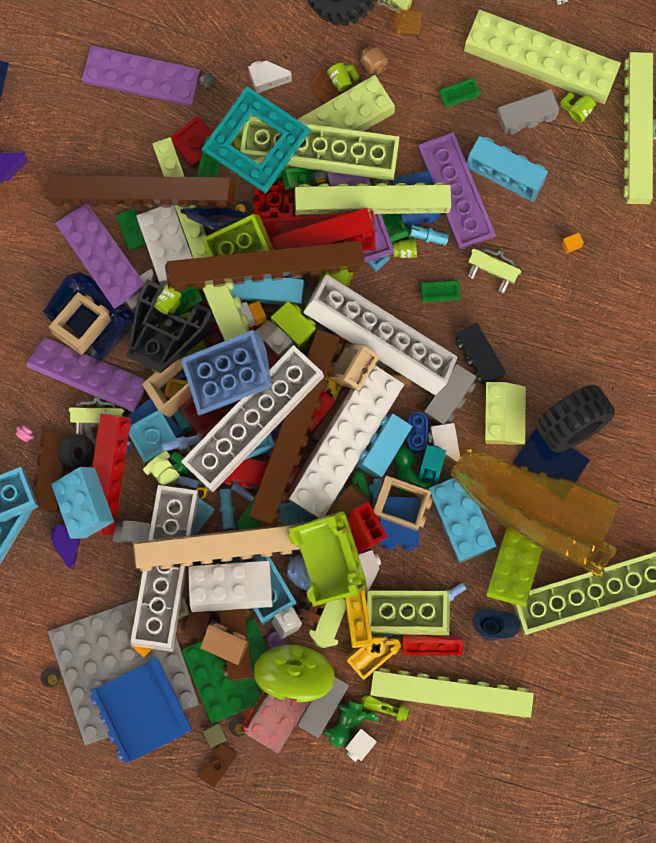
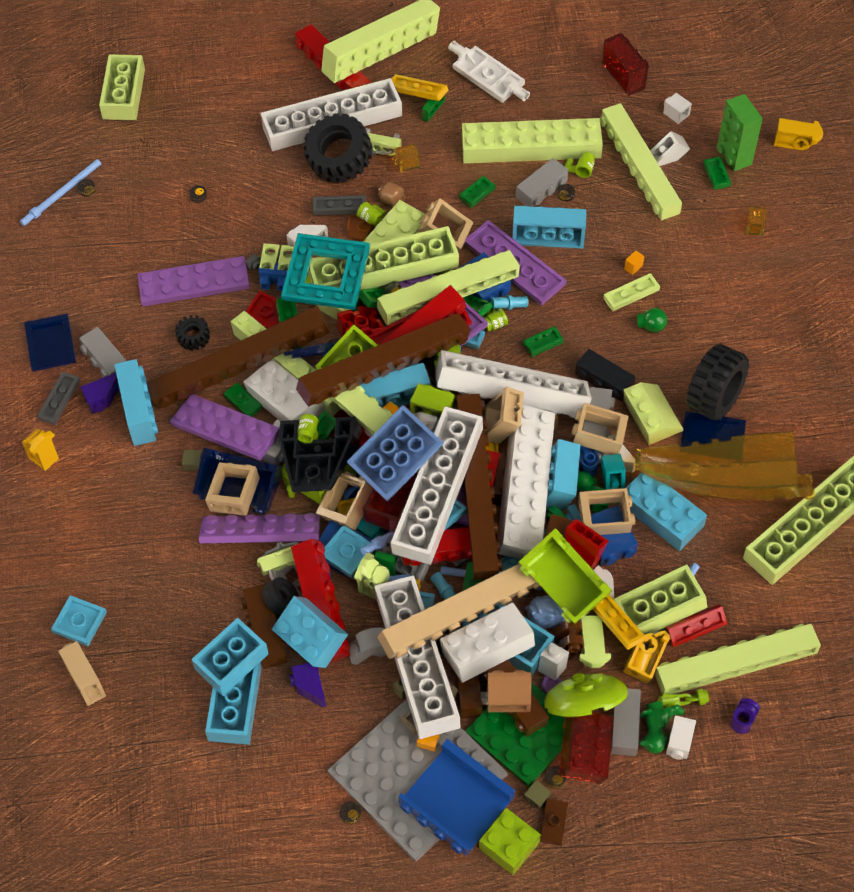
camera: 25 degrees left, 20 degrees down
(23, 125) = (101, 351): none -> light grey brick
(24, 433) = (222, 604): bright pink plate -> none
(29, 192) = (136, 402): none -> medium azure brick
(58, 272) = (191, 460): none -> olive piece
(112, 125) = (192, 341): none -> black tyre
(169, 767) = (509, 841): none -> lime brick
(223, 94) = (274, 266): none -> hips
(316, 49) = (337, 204): none -> dark grey plate
(418, 136) = (443, 208): none -> tan window
(436, 745) = (748, 710): none -> dark purple piece
(462, 415) = (604, 417): none -> tan window
(493, 266) = (578, 305): yellowish green piece -> none
(495, 624) = (743, 583): dark blue piece -> none
(514, 570) = (734, 526): lime plate -> none
(548, 131) = (566, 192): none -> clear smoke tile
(553, 274) = (631, 292): none -> yellowish green plate
(557, 315) = (652, 320): none -> green piece

